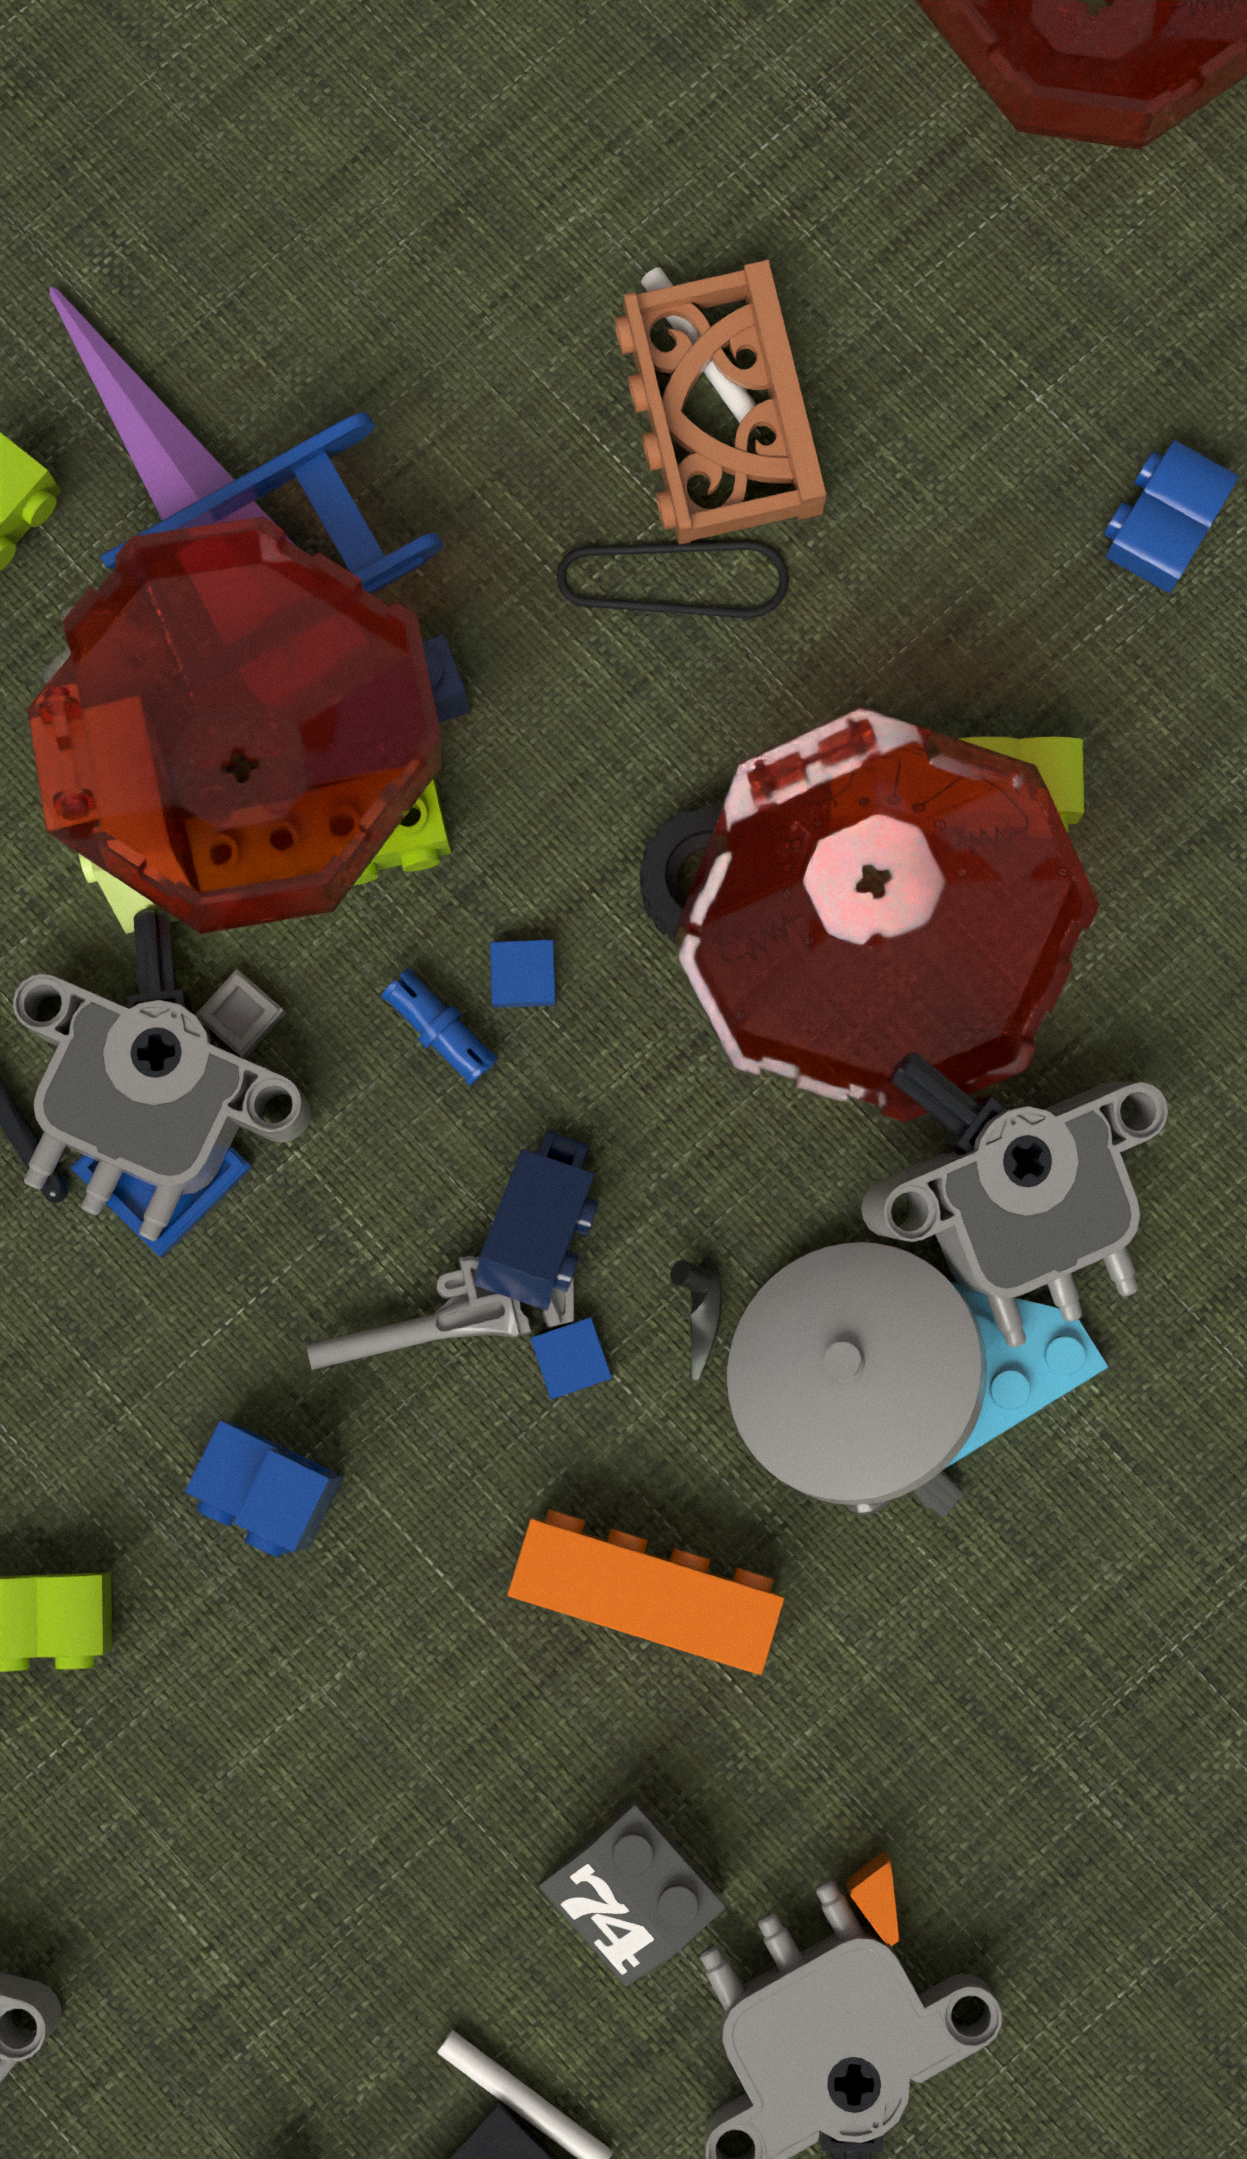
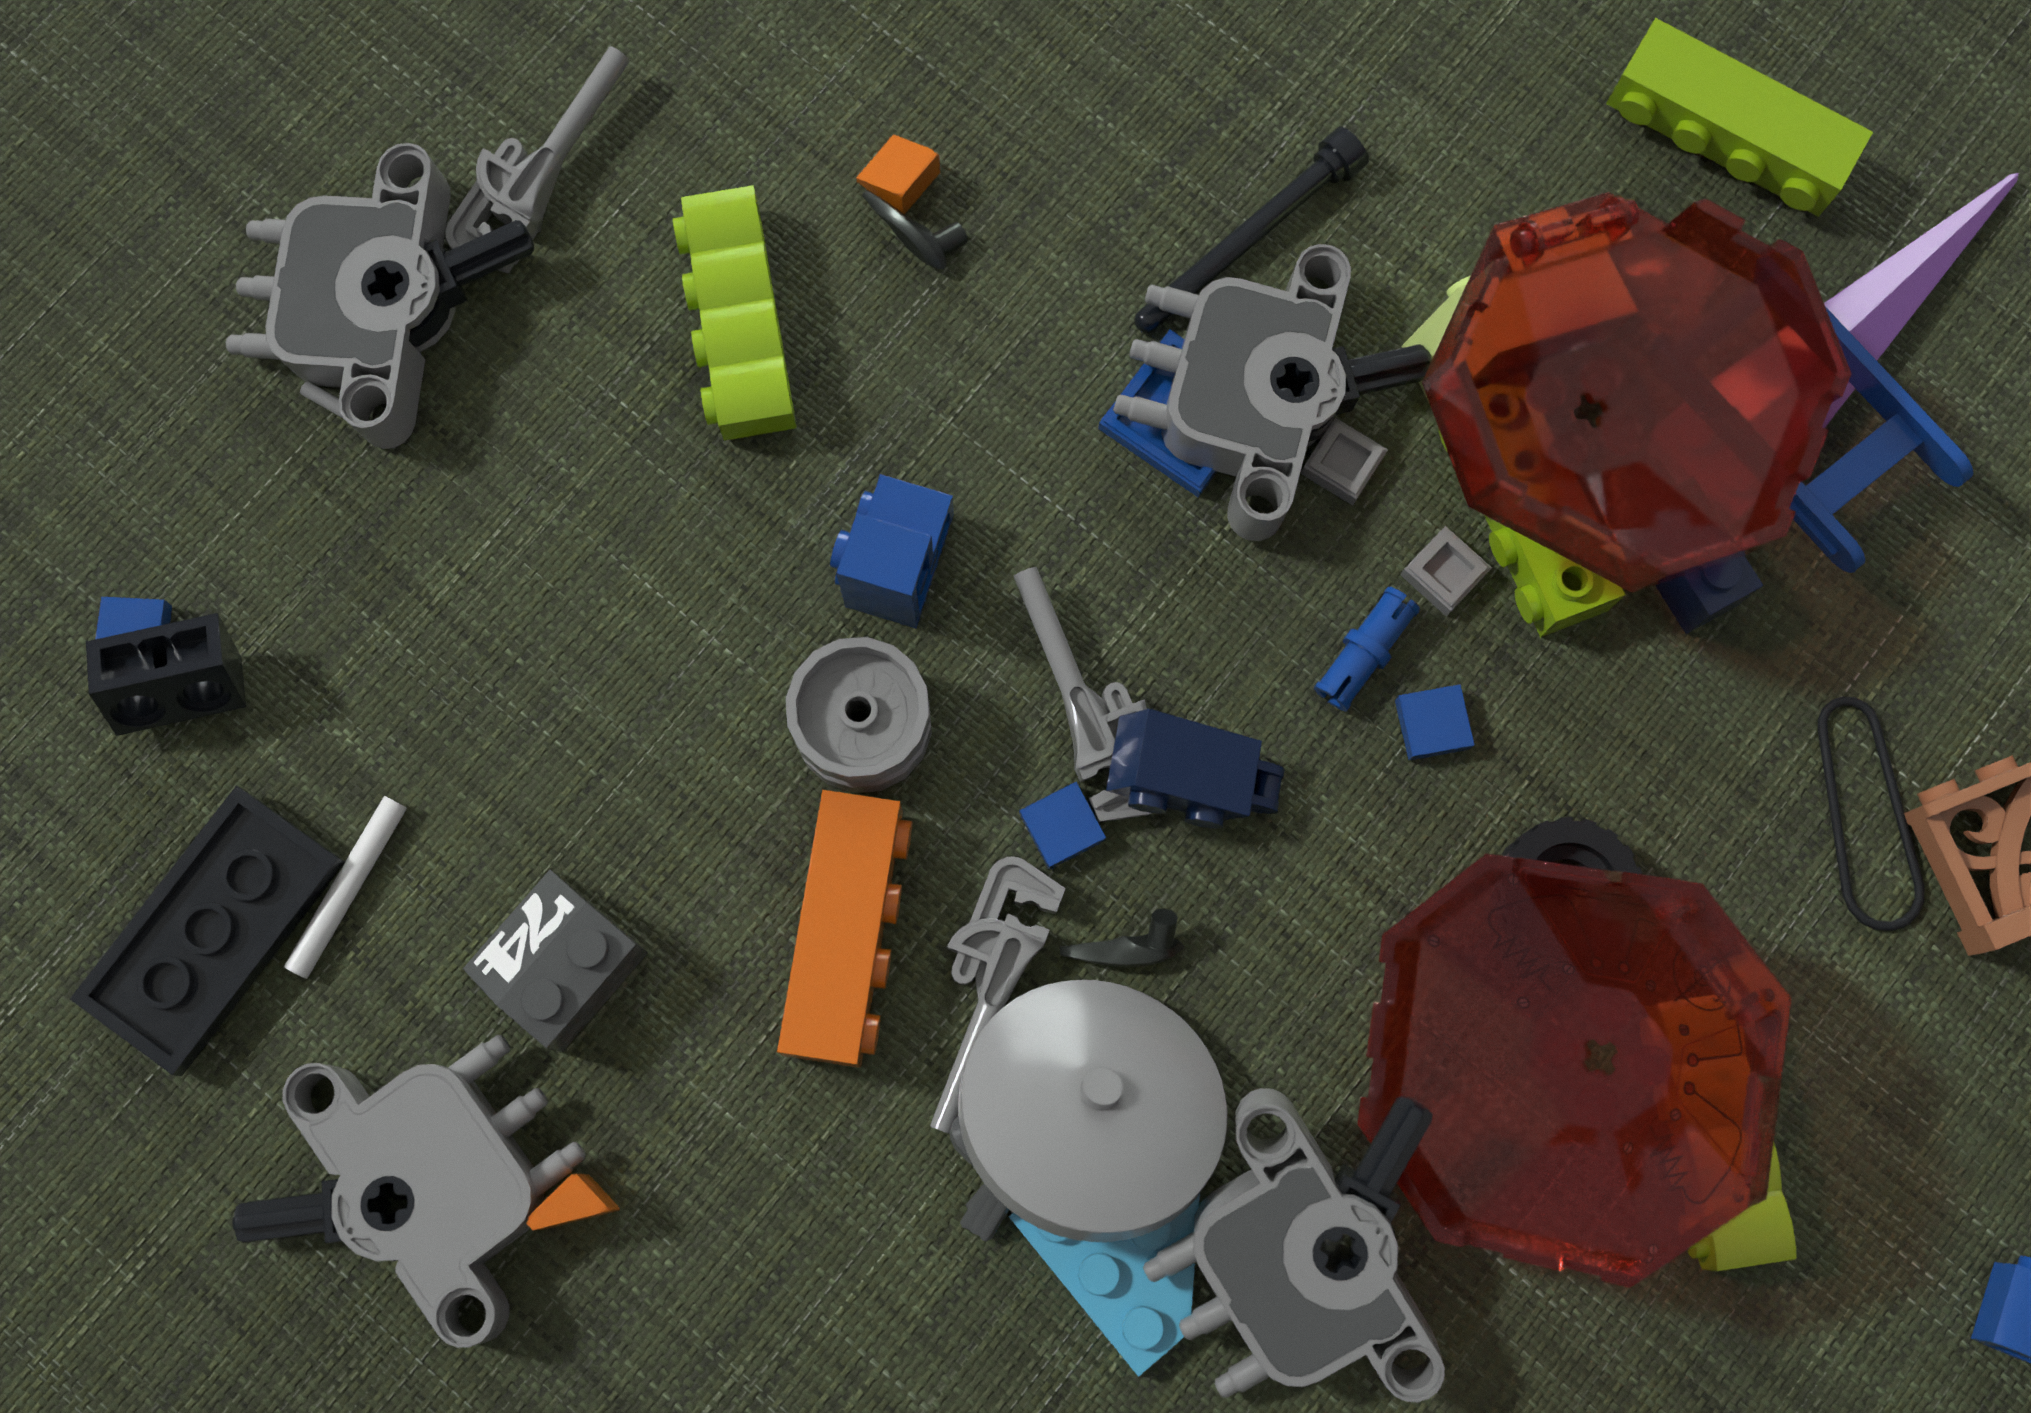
camera: 75 degrees right, 5 degrees down
(371, 933) = (1445, 571): none -> light grey tile
(412, 1582) = (852, 677): none -> light grey wheel
(693, 1444) = (995, 956): none -> light grey piece

